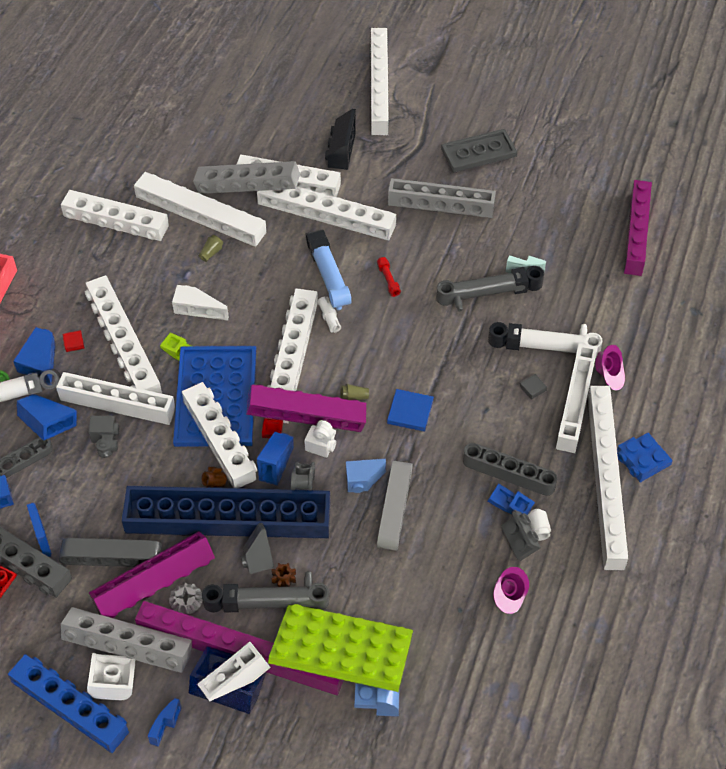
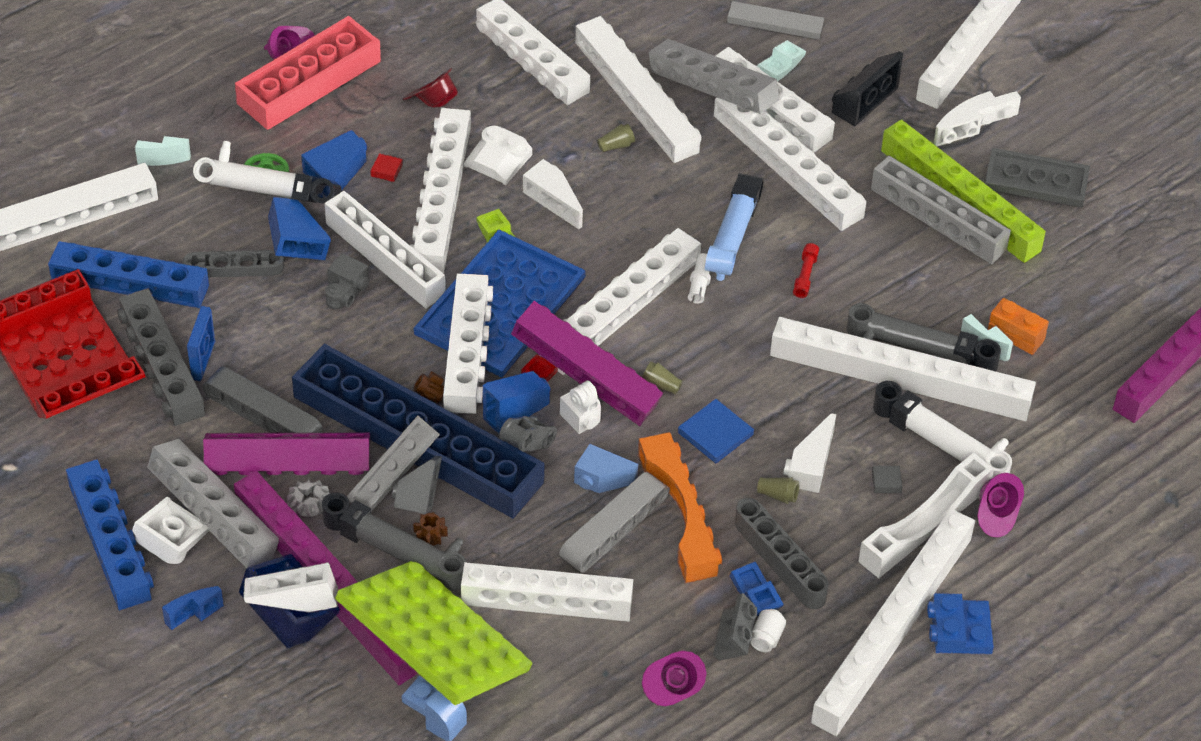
camera: 30 degrees right, 5 degrees down
(70, 273) = (436, 92): none -> dark red piece
(142, 295) = (499, 154): none -> white slope
(231, 545) = (394, 464): none -> light grey tile
(252, 123) = (775, 20): none -> light grey tile
(275, 147) = (783, 60): none -> light aqua slope
(388, 576) = (547, 592): none -> white brick
(404, 168) = (928, 160): none -> lime brick
(415, 127) = (970, 115): none -> white slope
(459, 496) = (696, 551): none -> orange arch
(477, 427) = (781, 489): none -> olive cone
(483, 401) = (811, 456): none -> white slope
(490, 310) = (908, 368): none -> white brick
(539, 247) = (1020, 325): none -> orange brick

